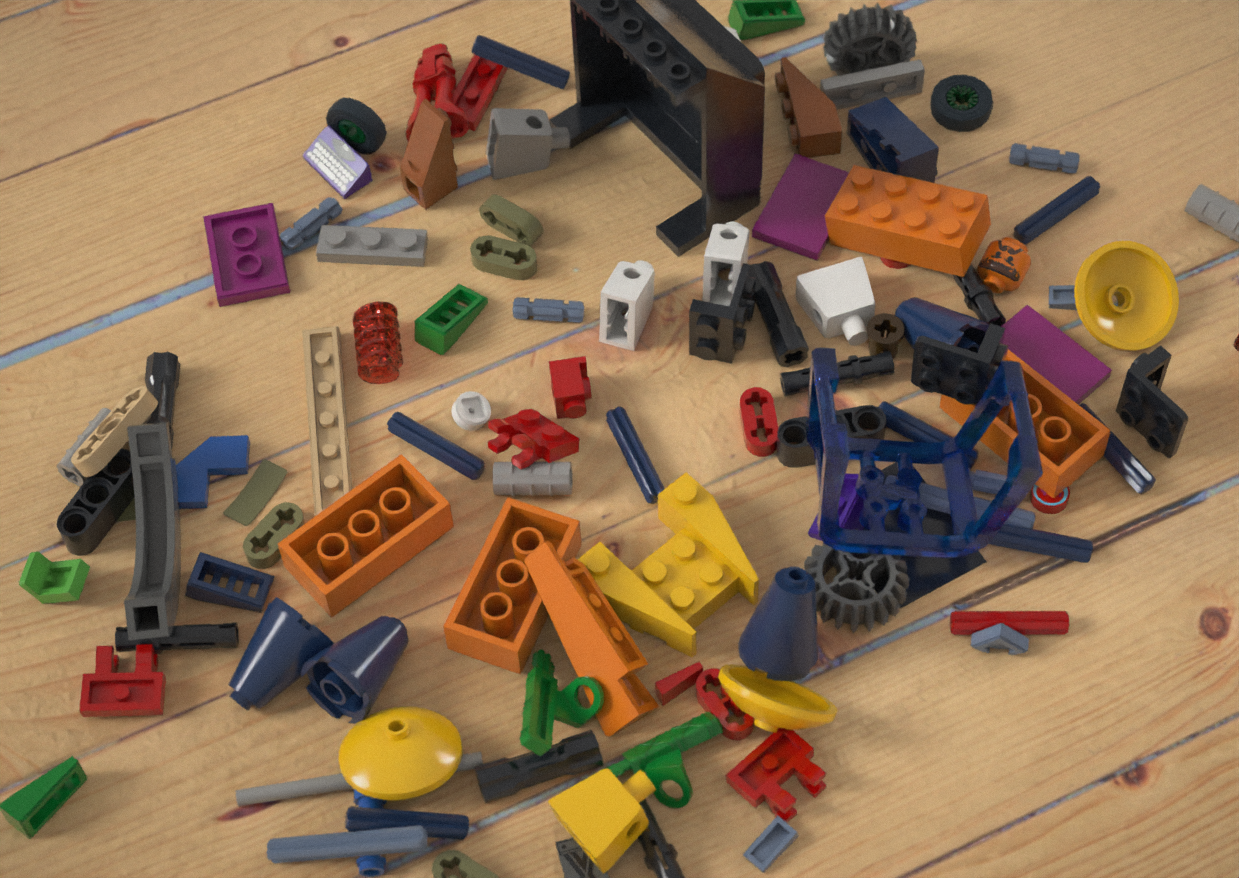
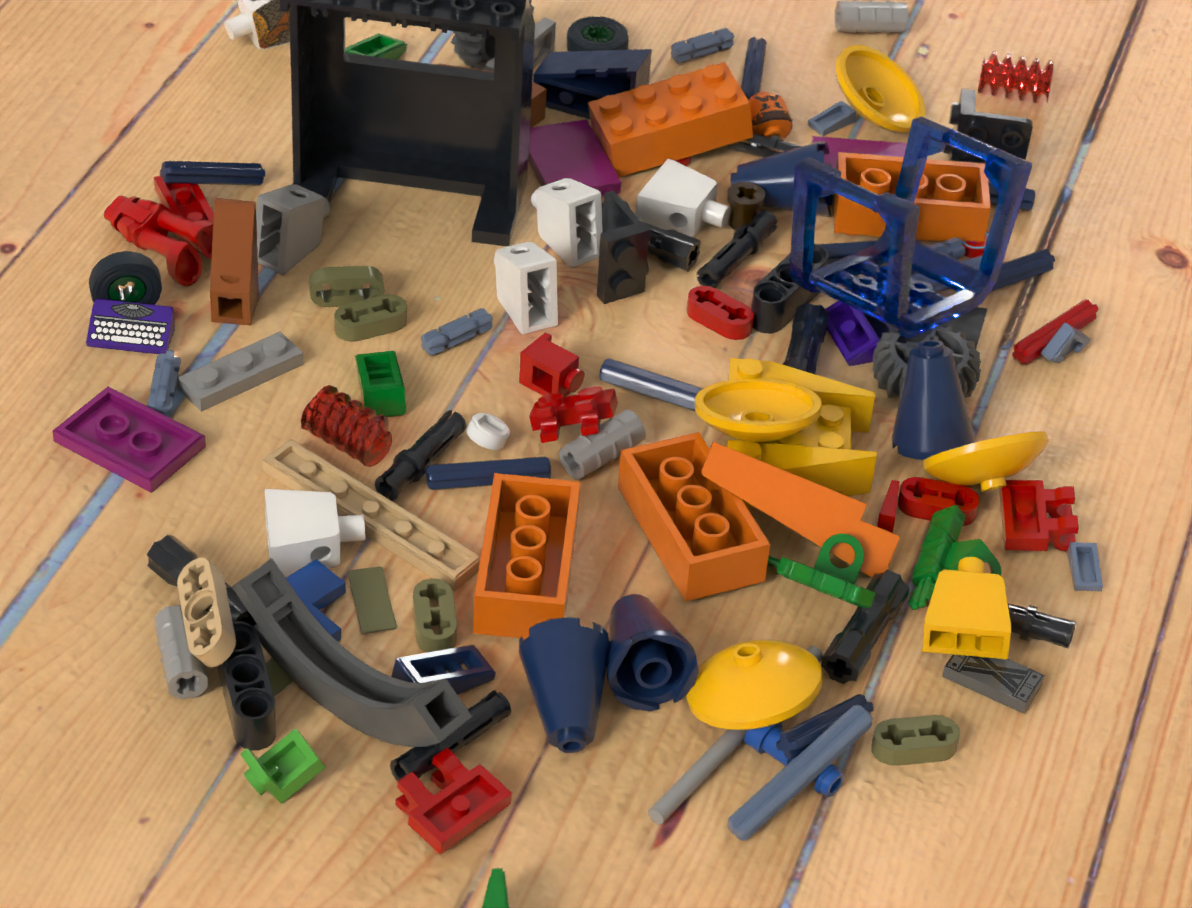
camera: 50 degrees left, 15 degrees down
(261, 408) = (307, 528): none -> white torso
(406, 398) = (412, 463): none -> black pin
(637, 531) = (758, 408): none -> yellow dish
(796, 488) = (806, 337): none -> black axle
(955, 370) = (862, 159): black bracket -> none

